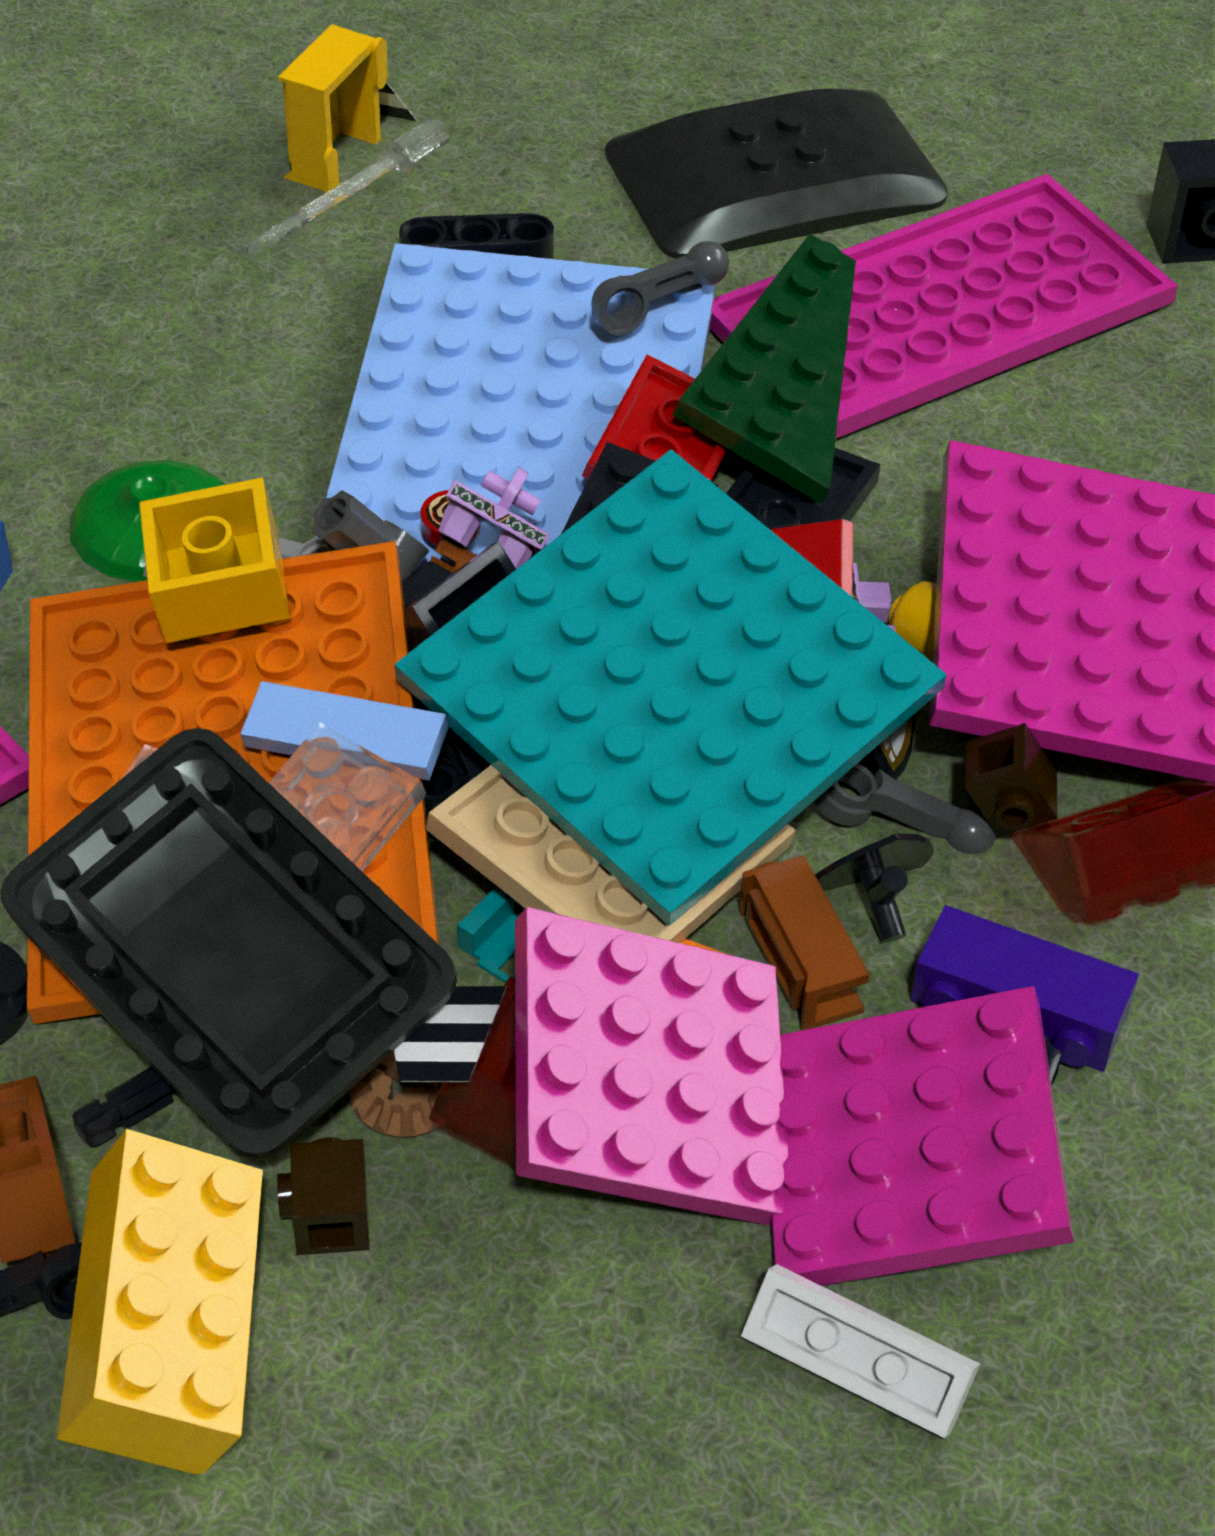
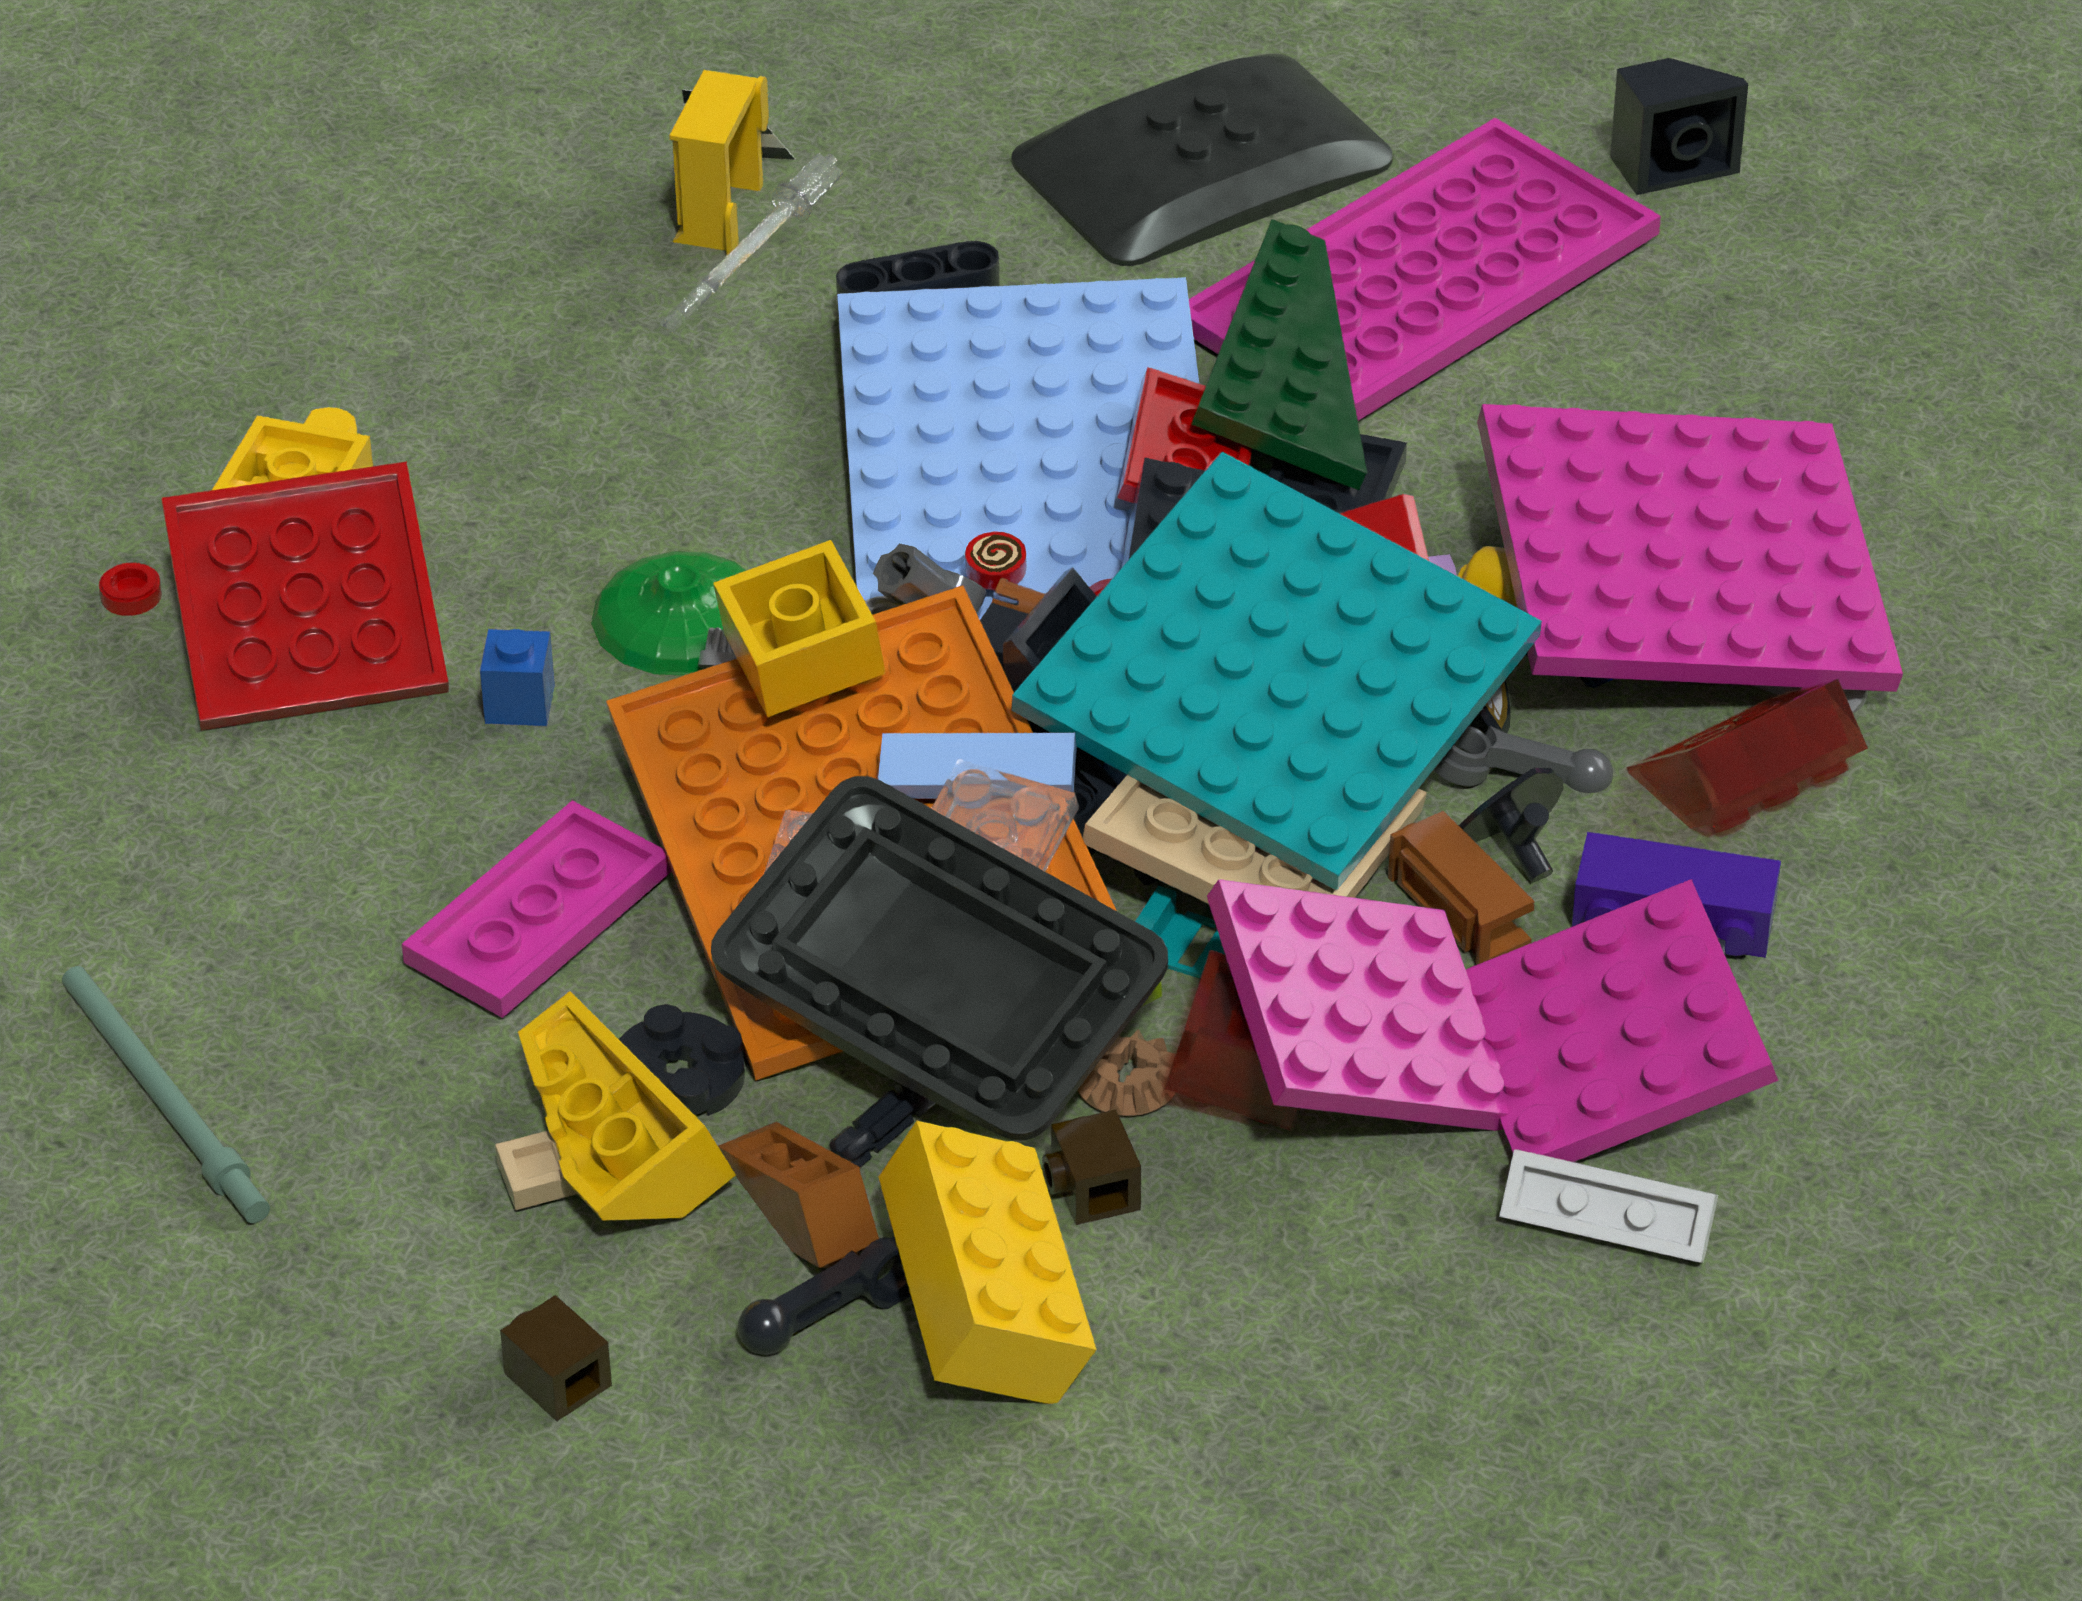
camera: 10 degrees left, 5 degrees down
(450, 1039) = (1177, 1006): sticker -> none
(468, 508) = (1023, 543): lavender hips -> none
(704, 264) = (1176, 267): dark grey piece -> none
(1011, 780) = (1619, 714): dark brown brick -> none

